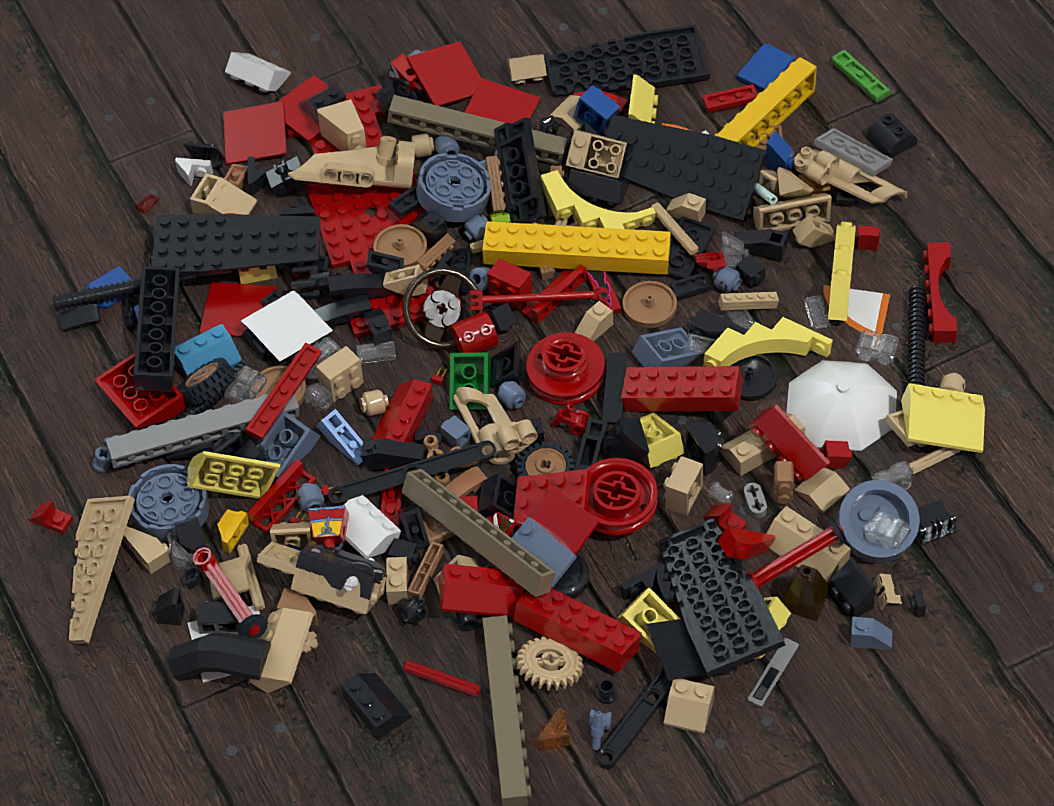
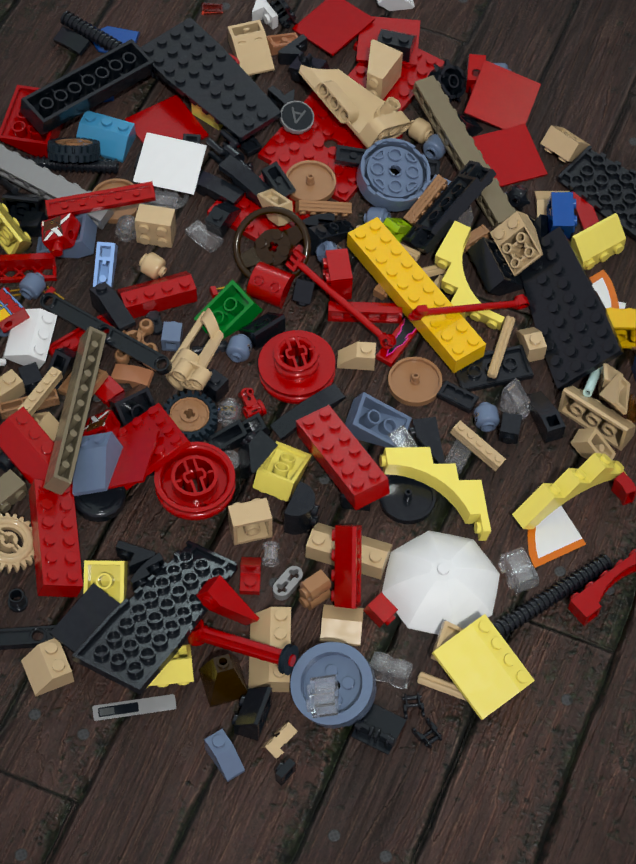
camera: 45 degrees right, 5 degrees up
(246, 385) = (94, 177): clear brick -> none
(286, 441) = (60, 233): none -> red torso
(331, 213) = (296, 117): none -> black tile
(428, 551) = (42, 390): none -> tan piece
(431, 225) = (345, 187): black slope -> none
(567, 438) = (229, 411): none -> clear head
(644, 190) = (519, 302): none -> red hinge
(711, 260) = (489, 391): red plate -> none
(816, 312) = (515, 502): clear tile -> none
(934, 484) = (415, 697): none -> black piece
(953, 382) = (529, 652): tan head -> none
(963, 489) = (422, 738): none -> black piece

